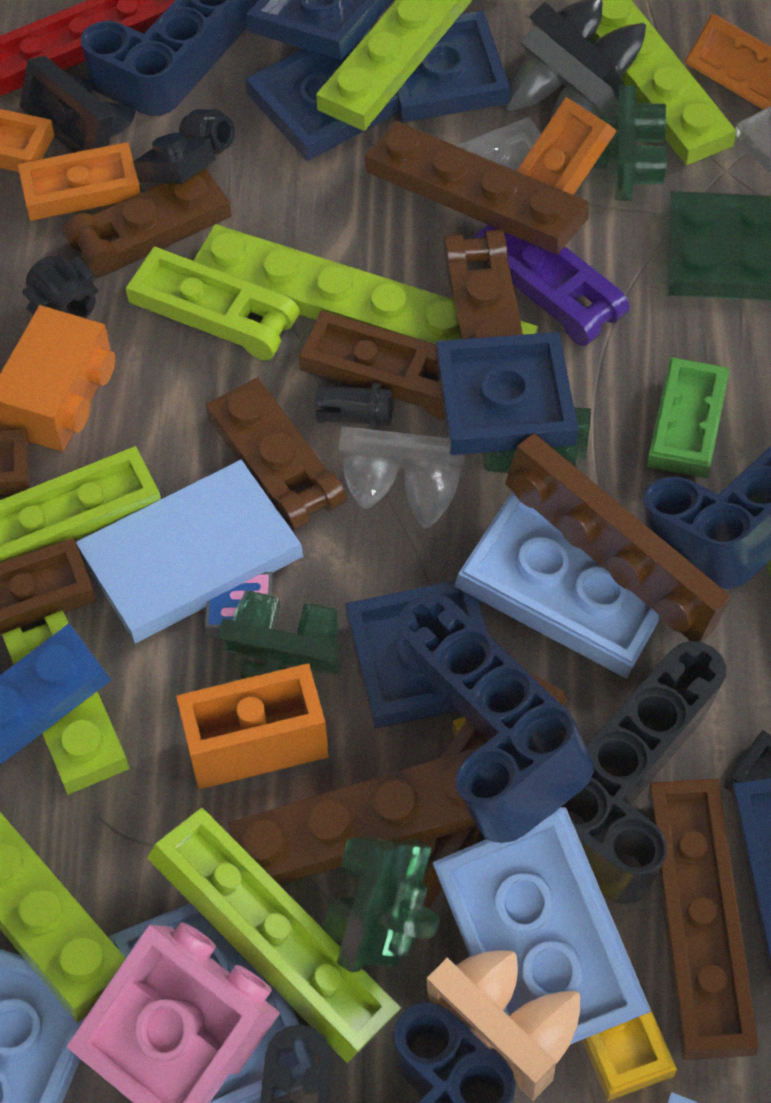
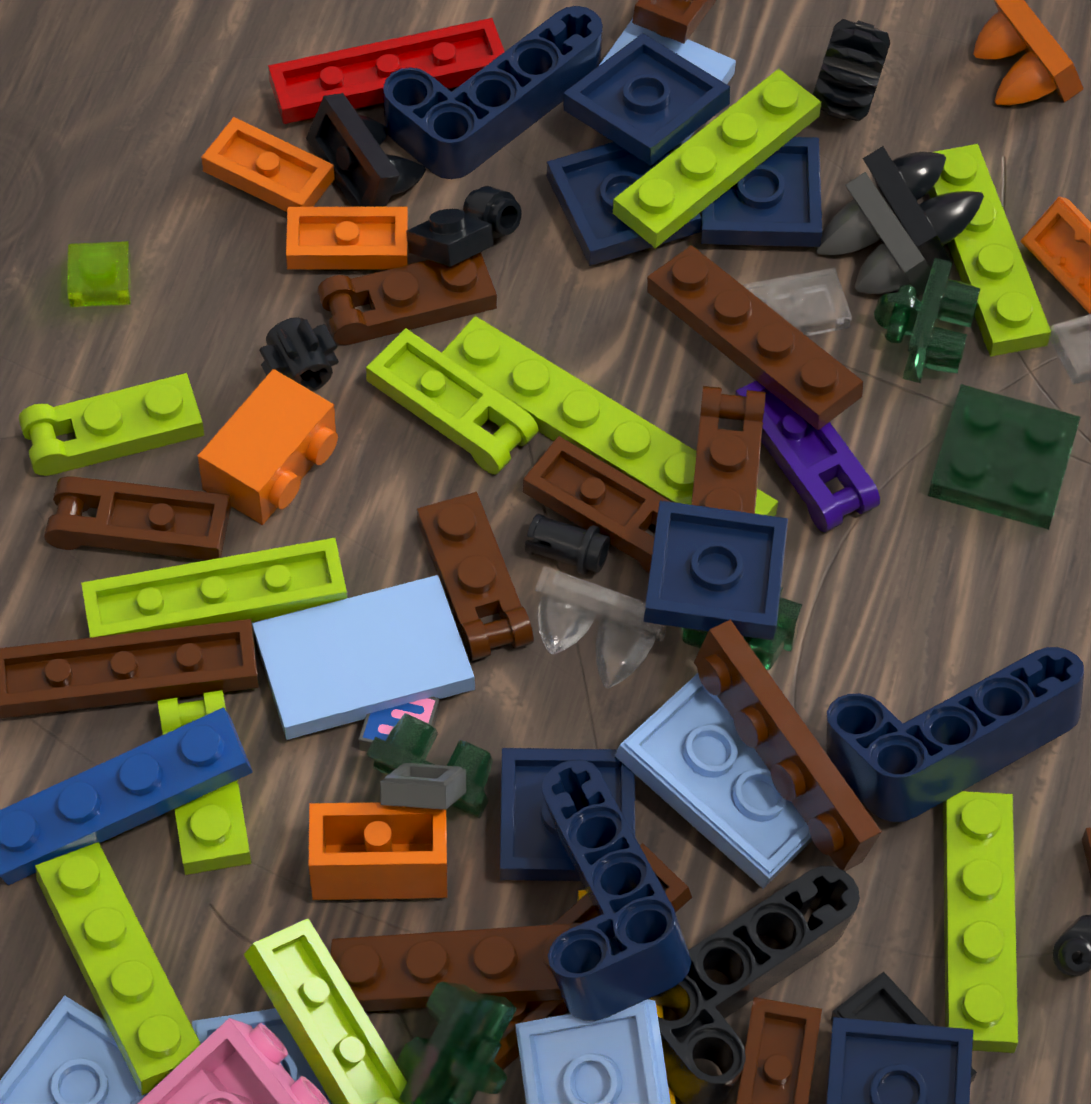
camera: 10 degrees right, 0 degrees up
(283, 653) = (423, 786): none -> dark grey tile
(567, 147) = (859, 317): orange plate -> none
(688, 417) = (905, 633): bright green plate -> none

